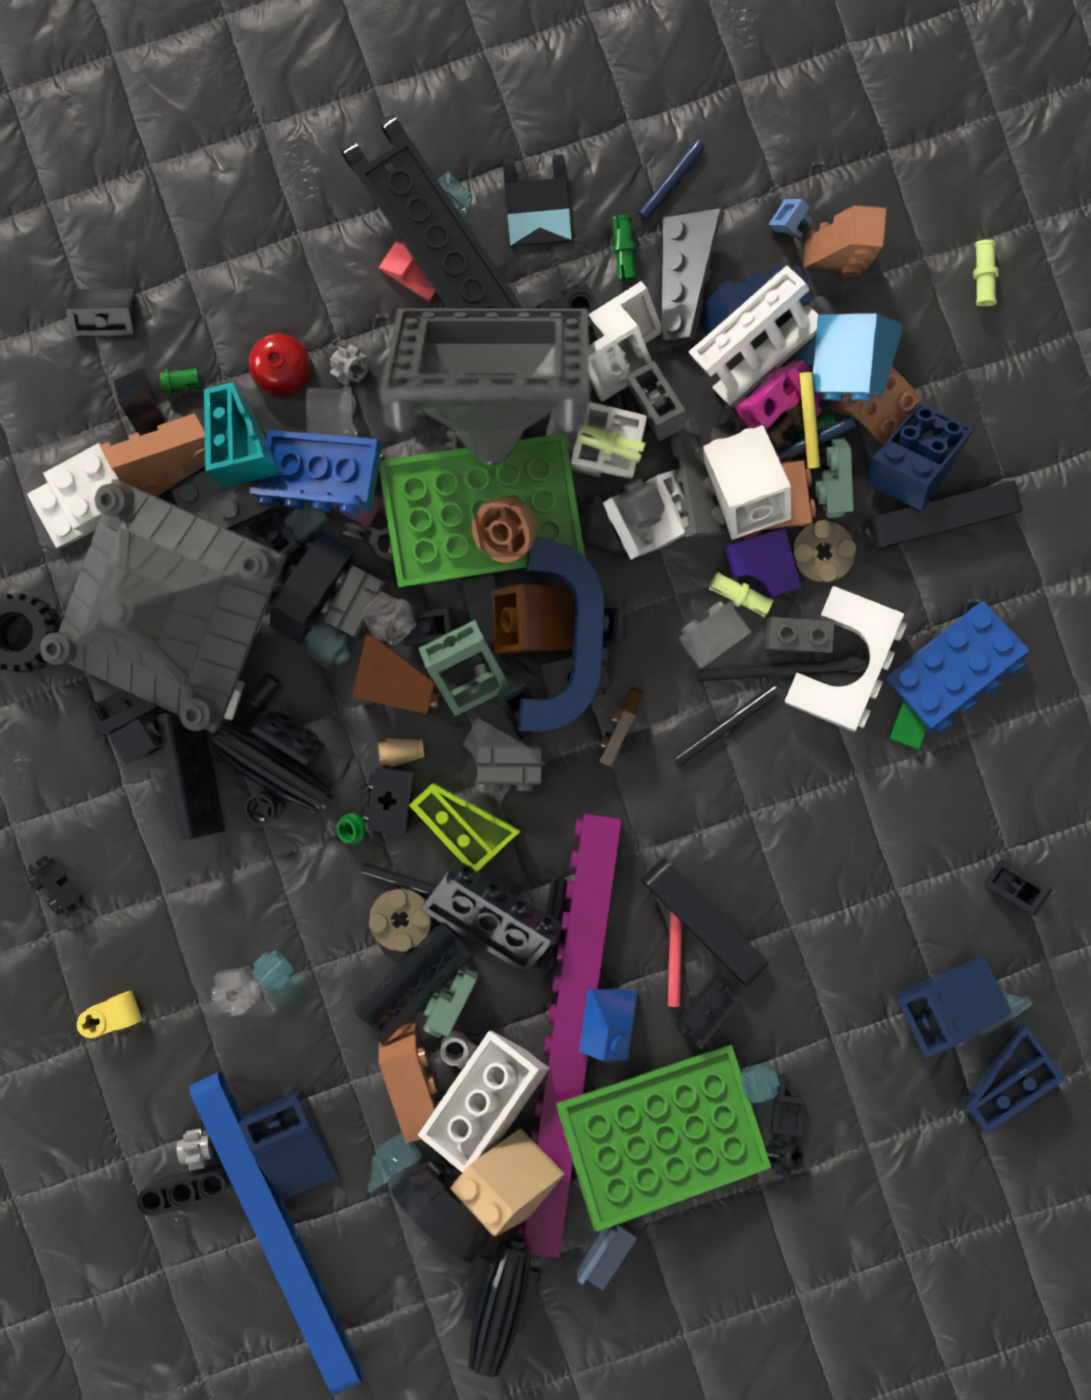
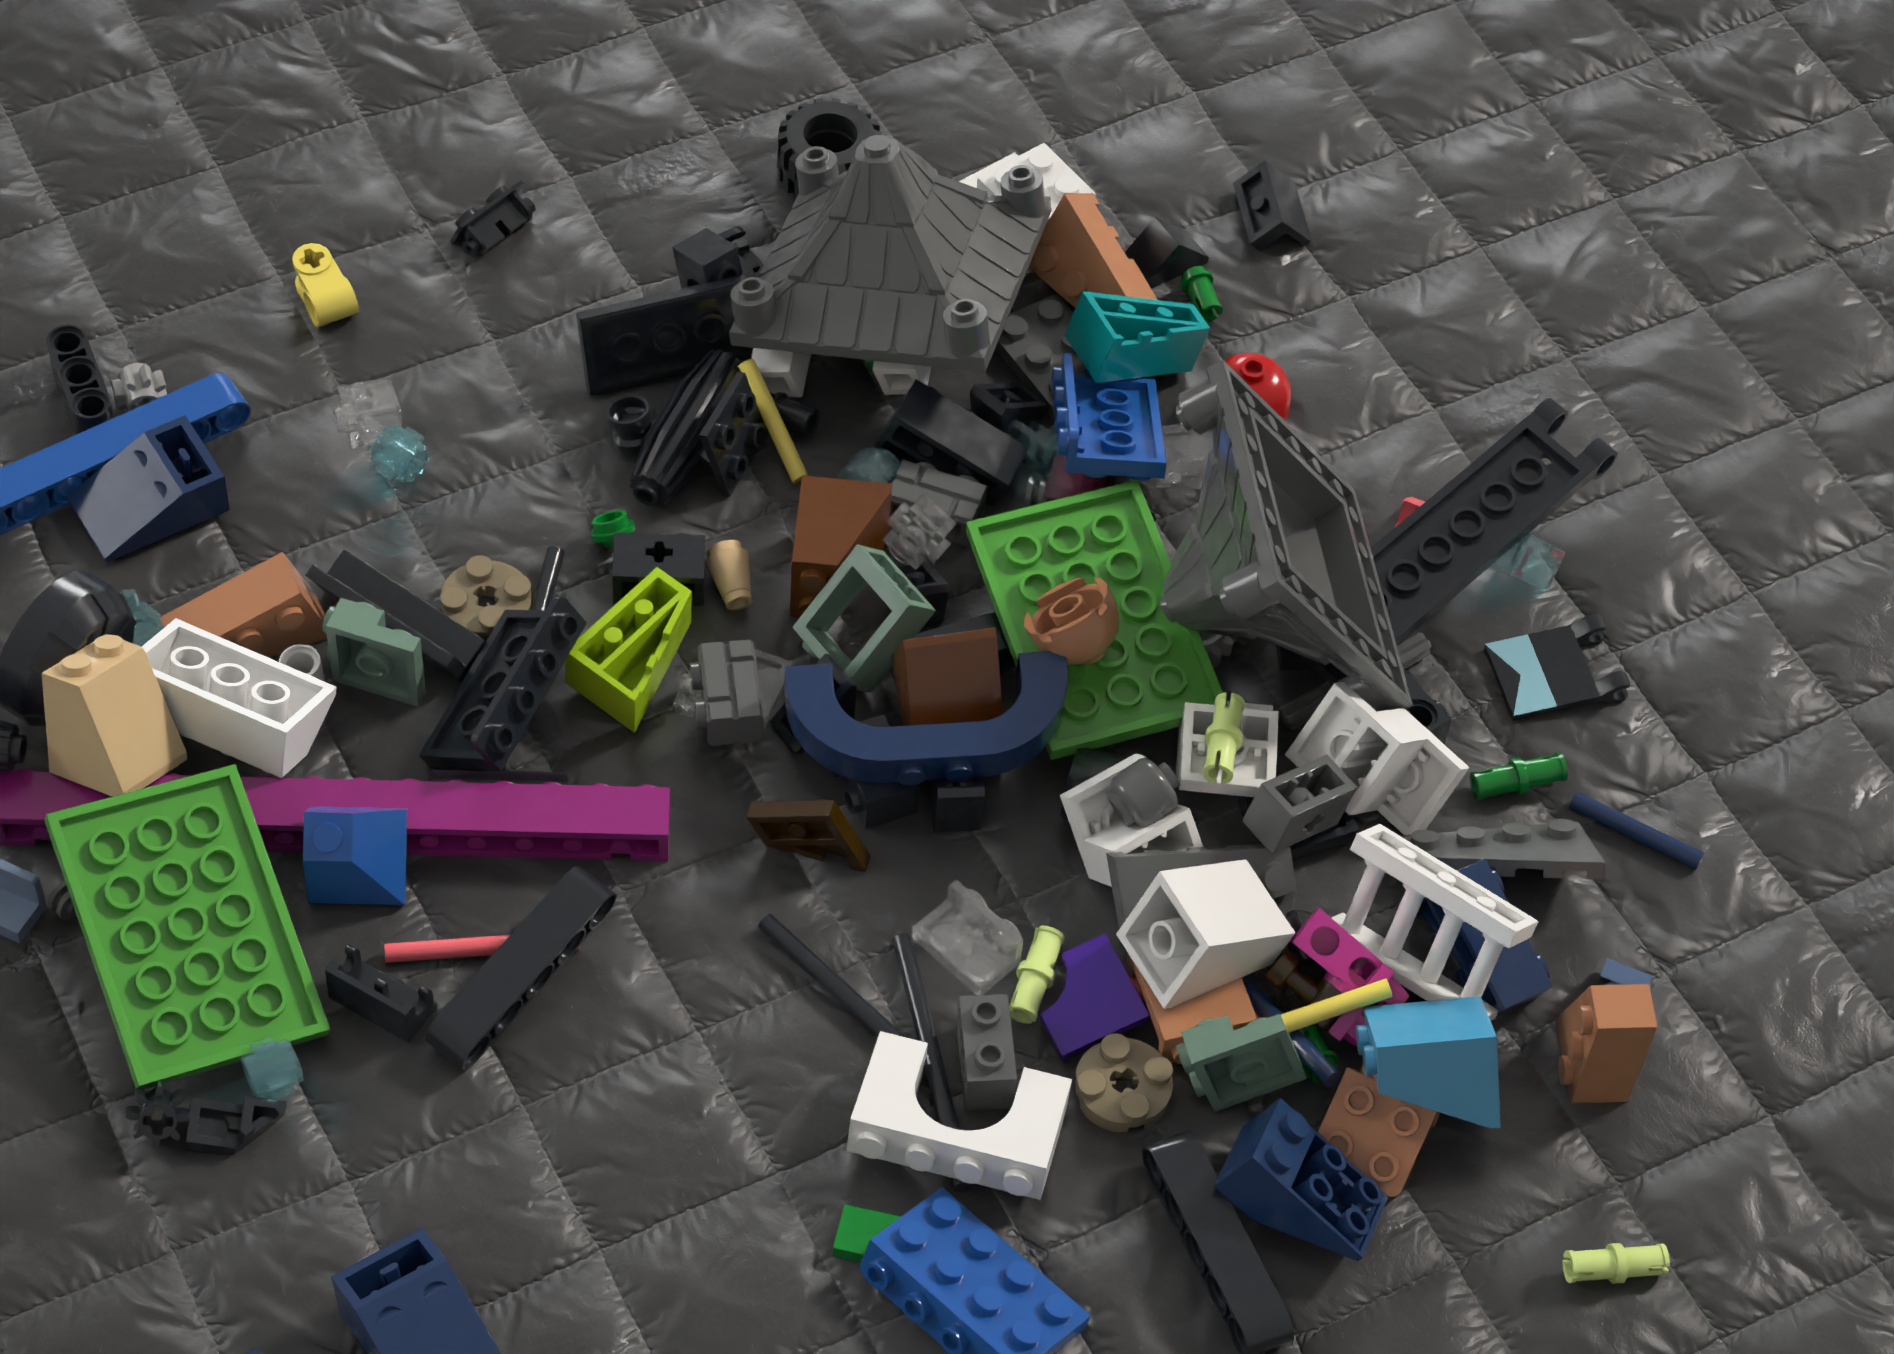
camera: 75 degrees right, 35 degrees down
(272, 707) = (774, 422): none -> light yellow bar

